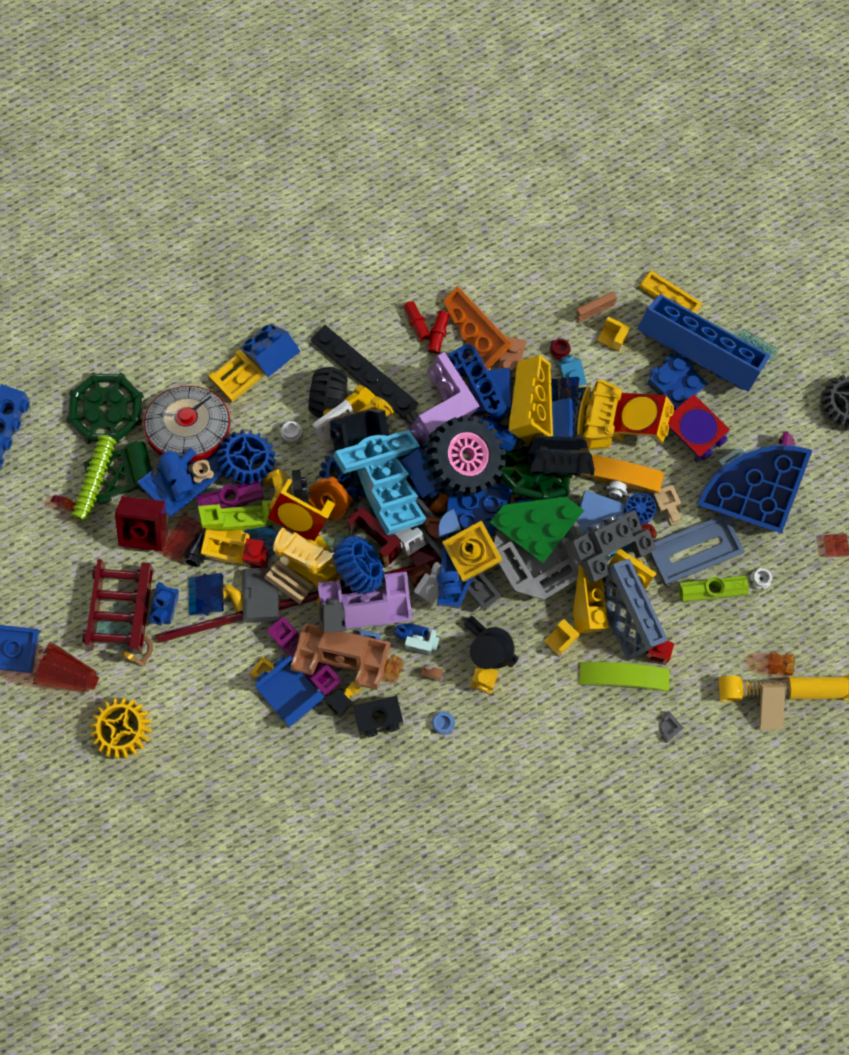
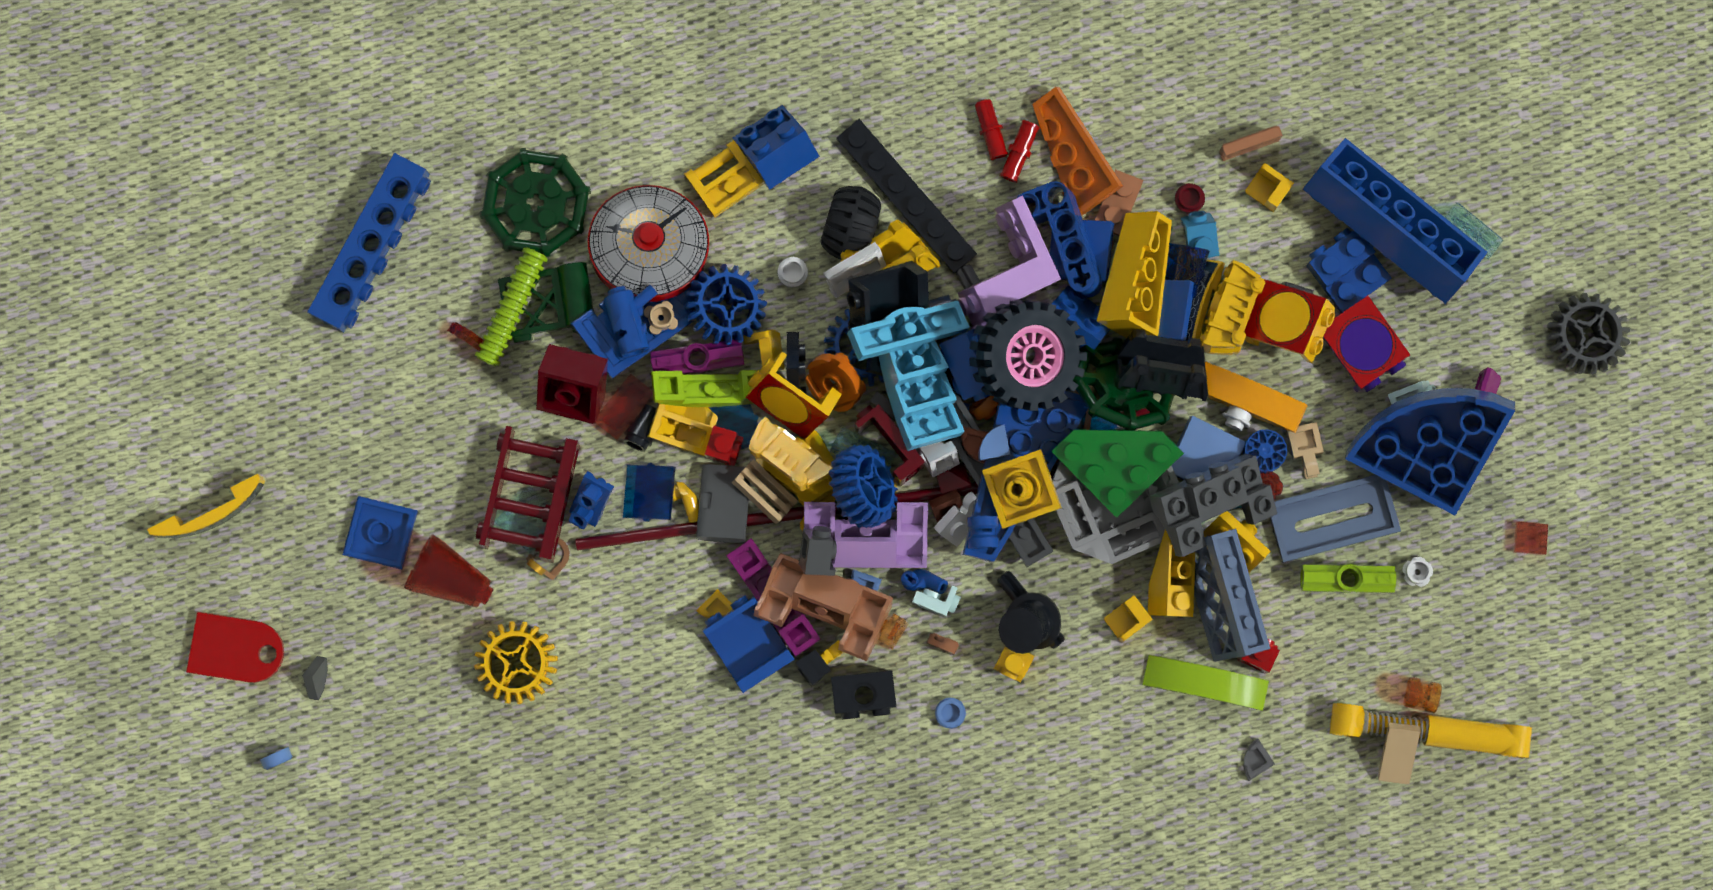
camera: 10 degrees right, 10 degrees up
(655, 285) = (1349, 124): yellow tile -> none

